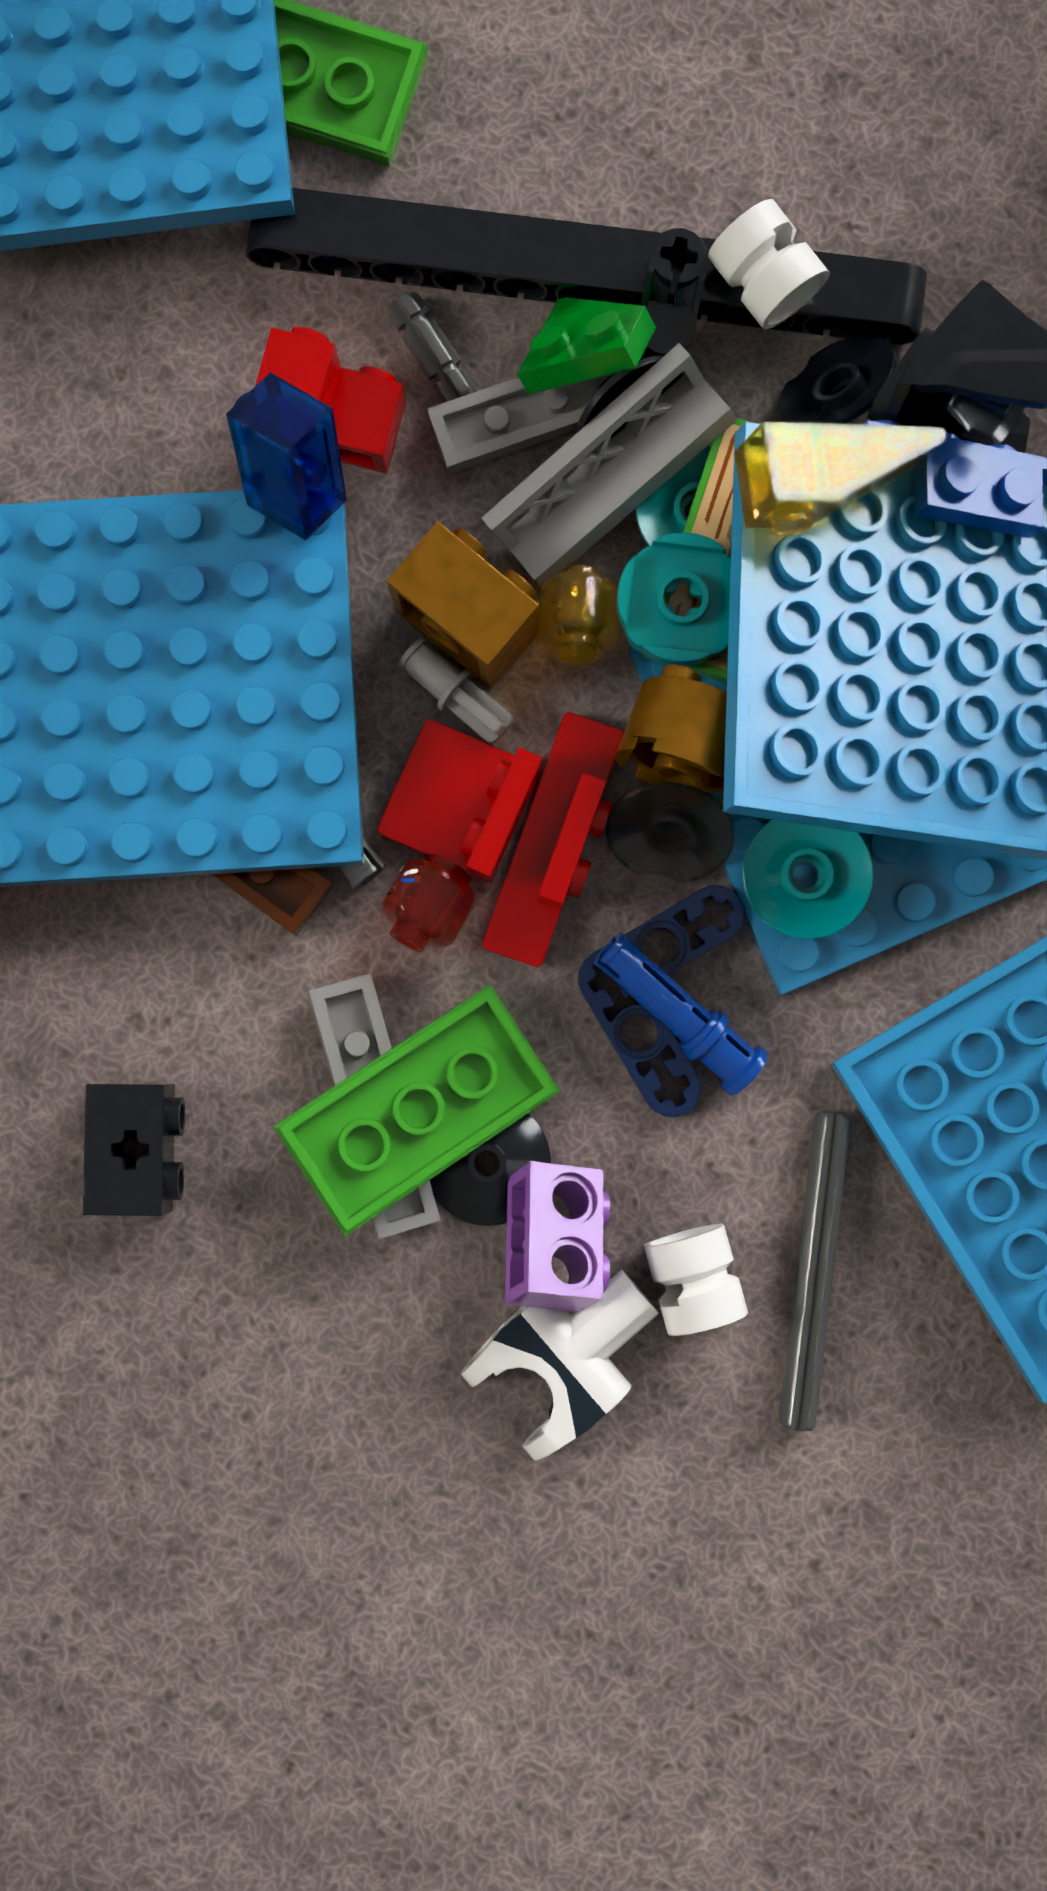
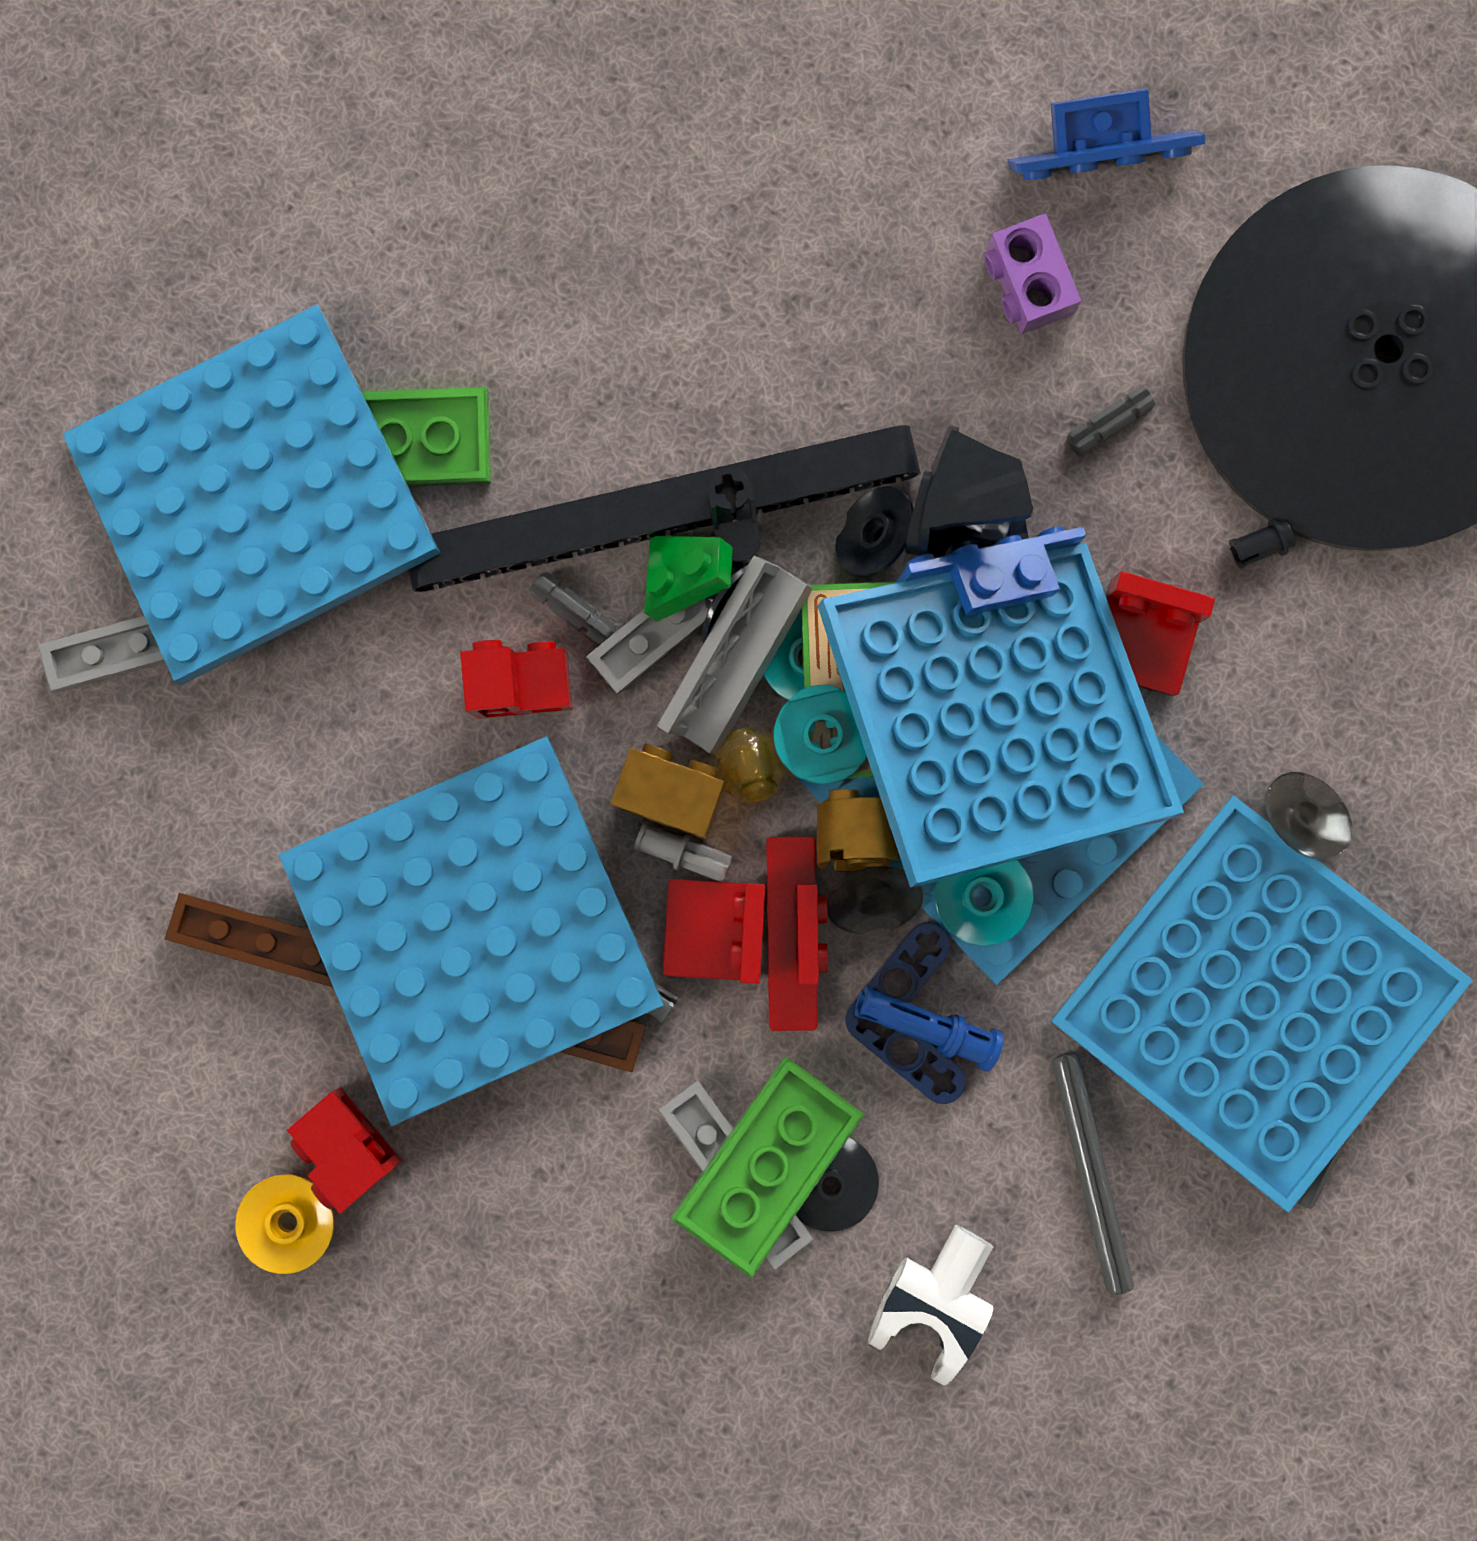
camera: 20 degrees left, 0 degrees up
(113, 1178) = (568, 1298): black brick -> none
(287, 455) = (506, 741): clear blue brick -> none
(428, 903) = (720, 1013): clear red head -> none
(540, 1232) = (888, 1223): medium lavender brick -> none
(696, 1280) = (1006, 1207): white wheel -> none
(764, 259) = (795, 471): white wheel -> none
(810, 470) = (881, 623): clear yellow slope -> none

